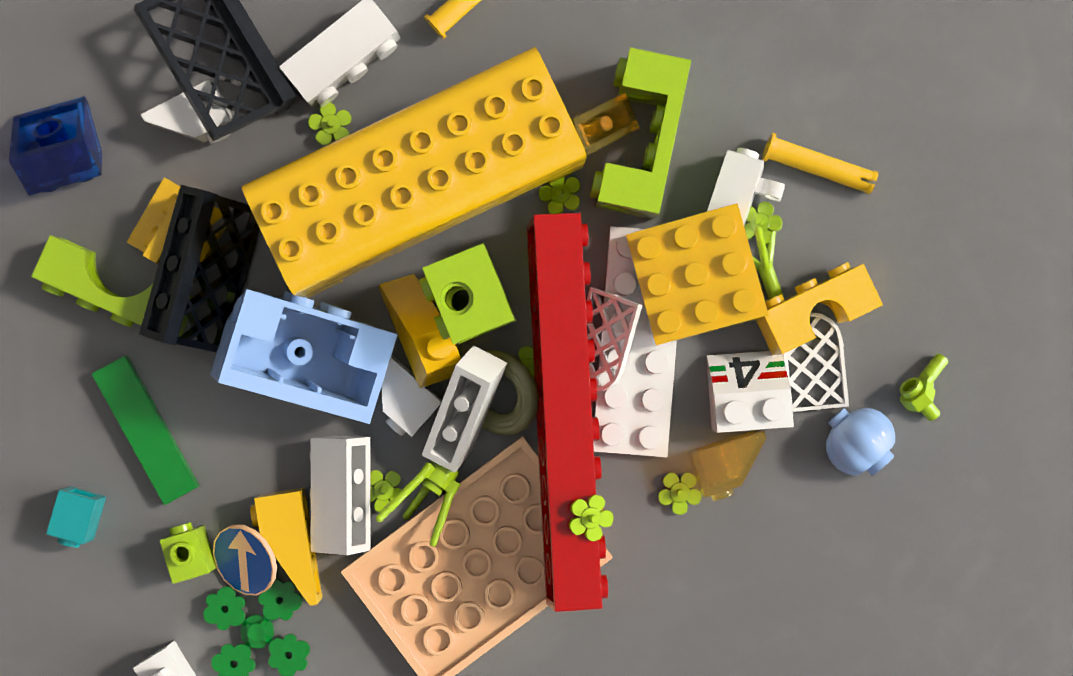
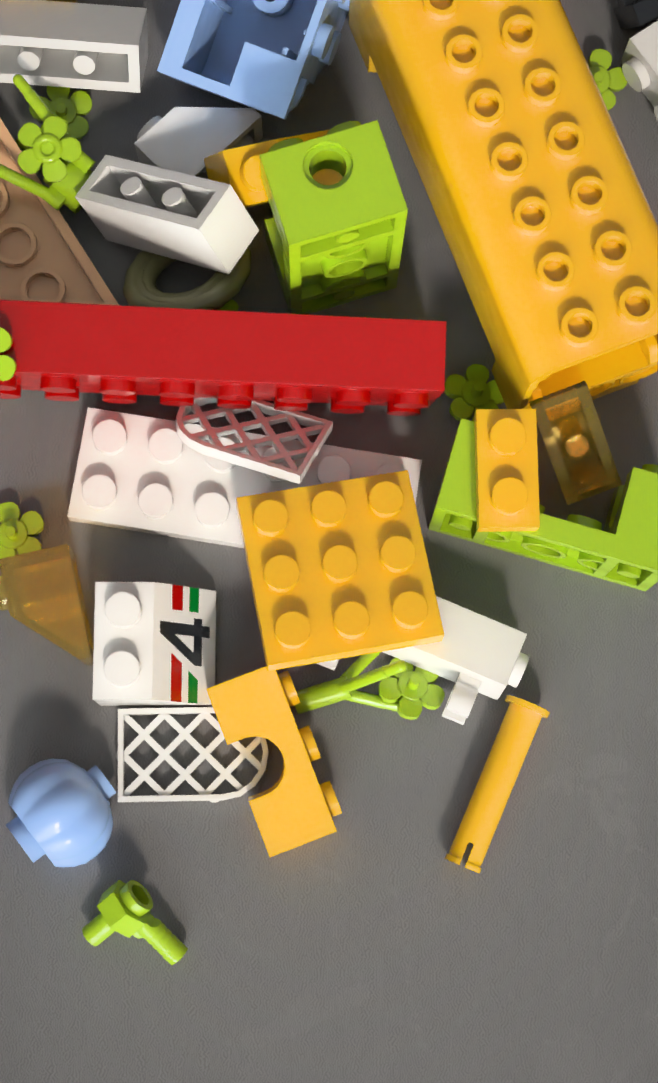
camera: 85 degrees right, 10 degrees down
(423, 493) = (48, 148): none -> lime plant
(633, 168) = (506, 470): none -> yellow plate

